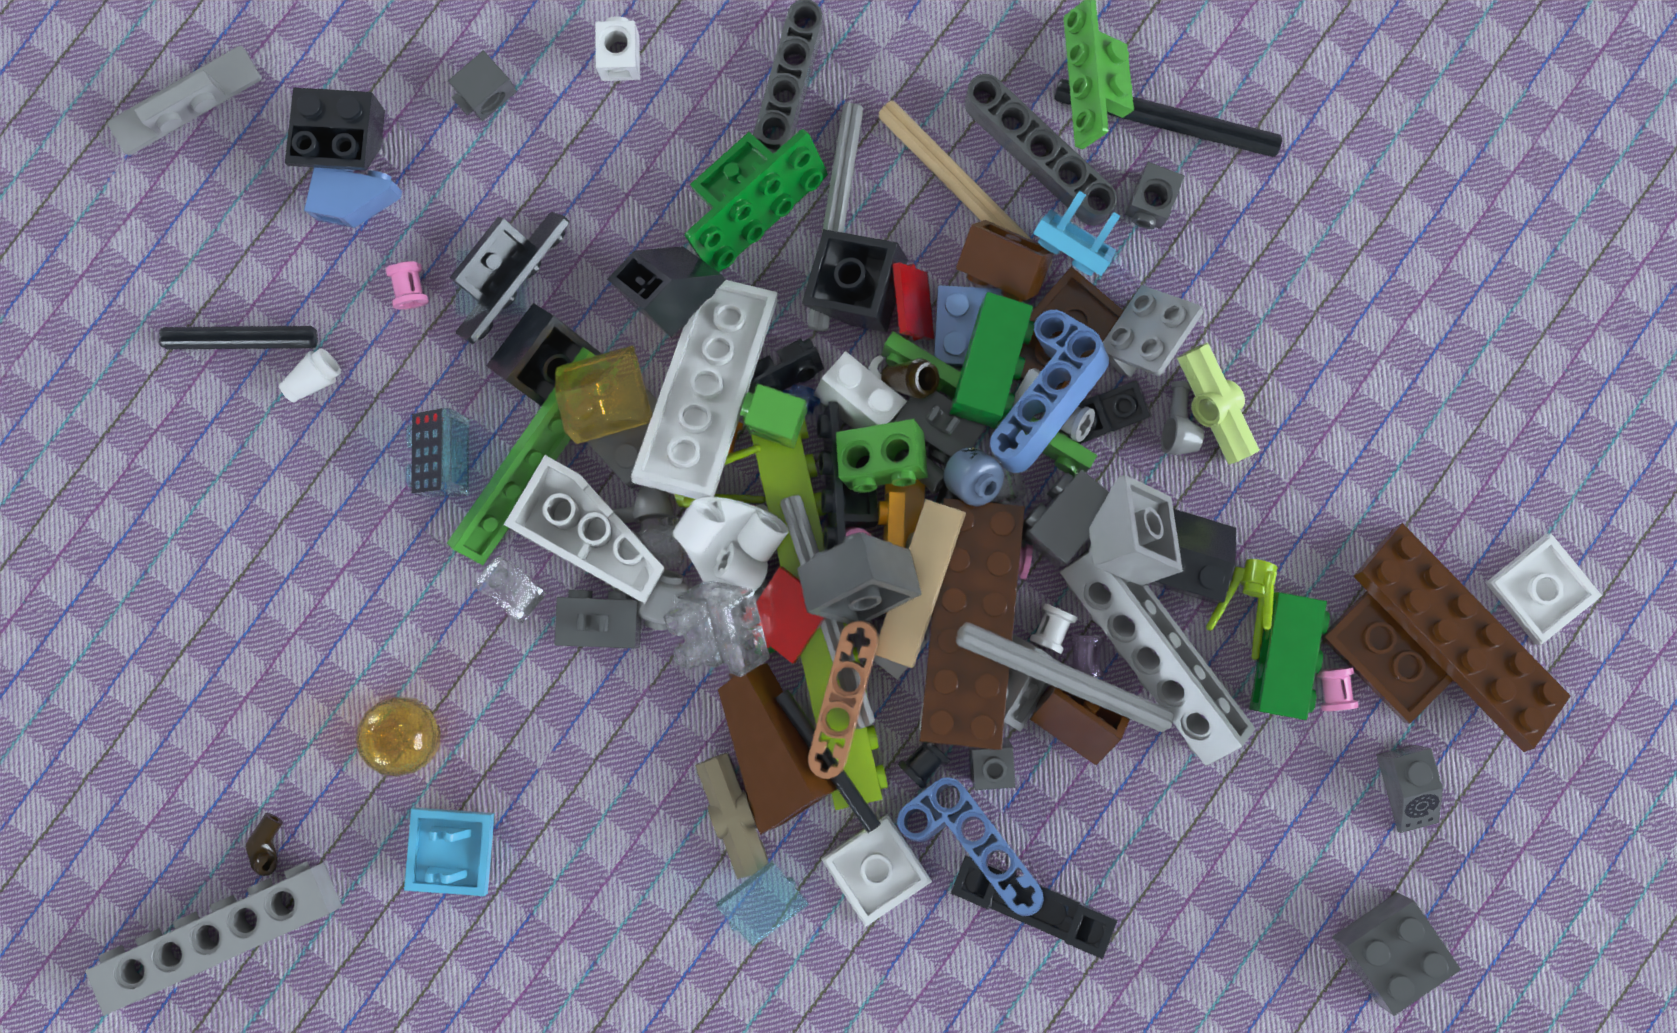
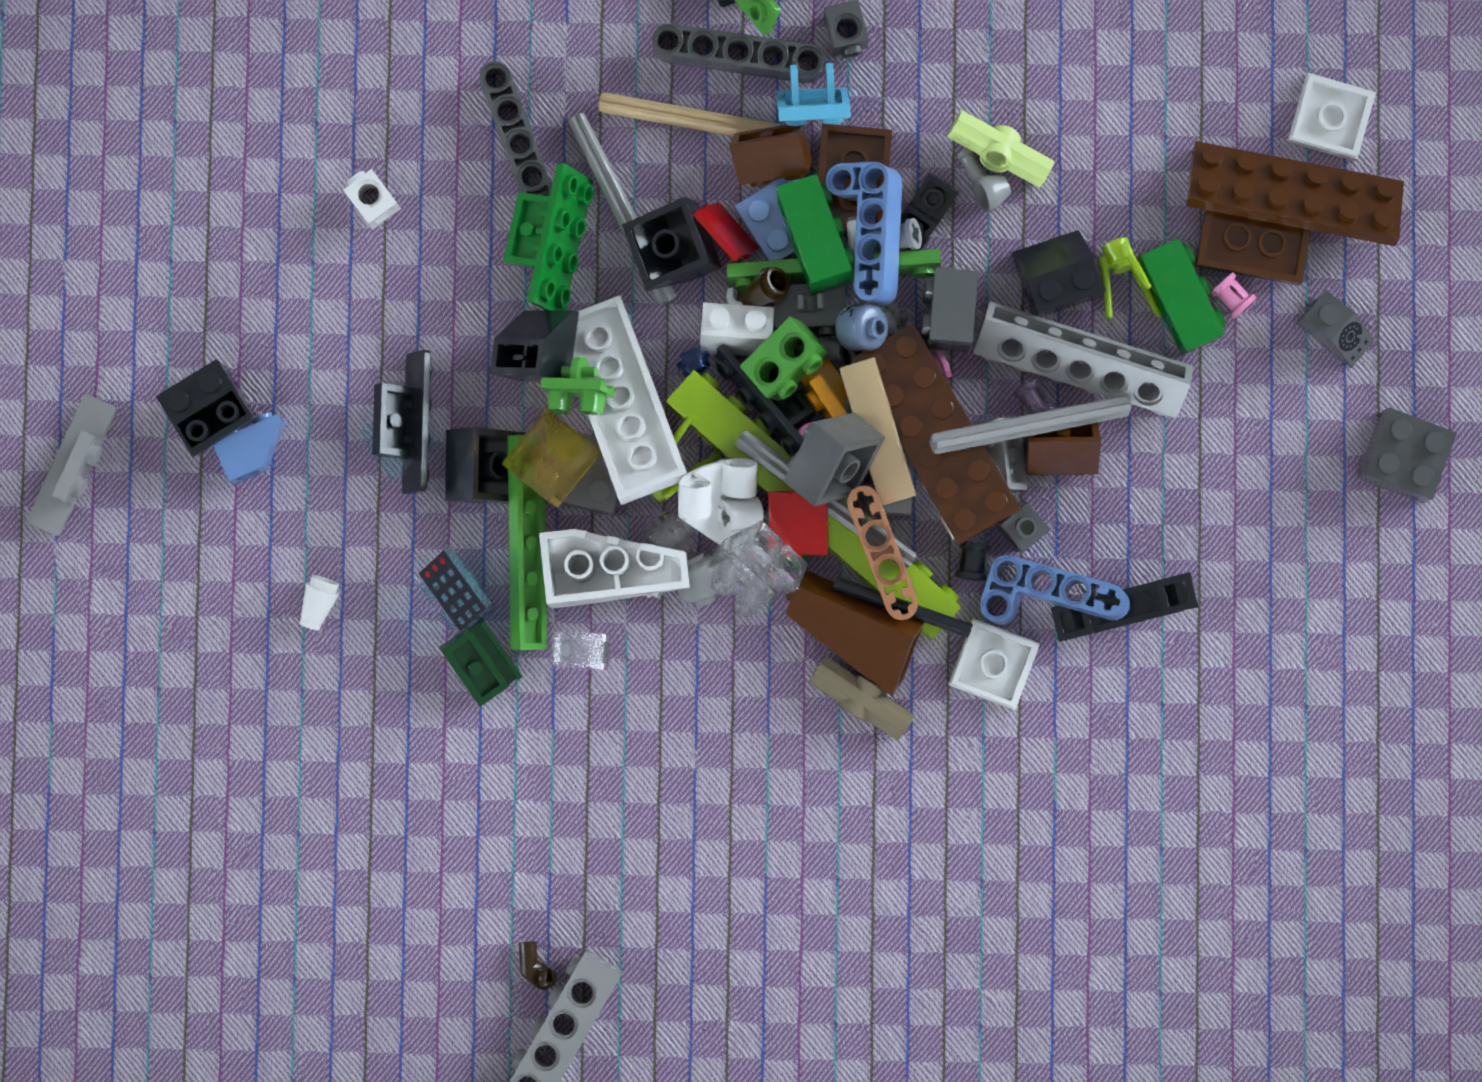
camera: 35 degrees left, 0 degrees up
(238, 337) = (242, 611): black axle -> none
(398, 736) = (575, 817): clear yellow cylinder -> none
(407, 285) = (341, 484): bright pink bush -> none
(411, 534) = (480, 662): none -> dark green plate
(449, 851) = (674, 872): medium azure plate -> none
(481, 87) = (289, 298): dark grey brick -> none
(597, 621) = (662, 628): dark grey brick -> none
(649, 503) = (637, 515): light grey bar -> none
(681, 358) = (592, 391): none -> bright green hips
(762, 903) = (928, 746): clear light blue piece -> none
(773, 415) = (688, 385): bright green brick -> none
(798, 364) = (673, 335): black hinge -> none
(1053, 628) = (997, 397): white bush -> none
(1135, 533) = (1006, 286): light grey slope -> none
(1150, 331) = (914, 132): light grey bracket -> none

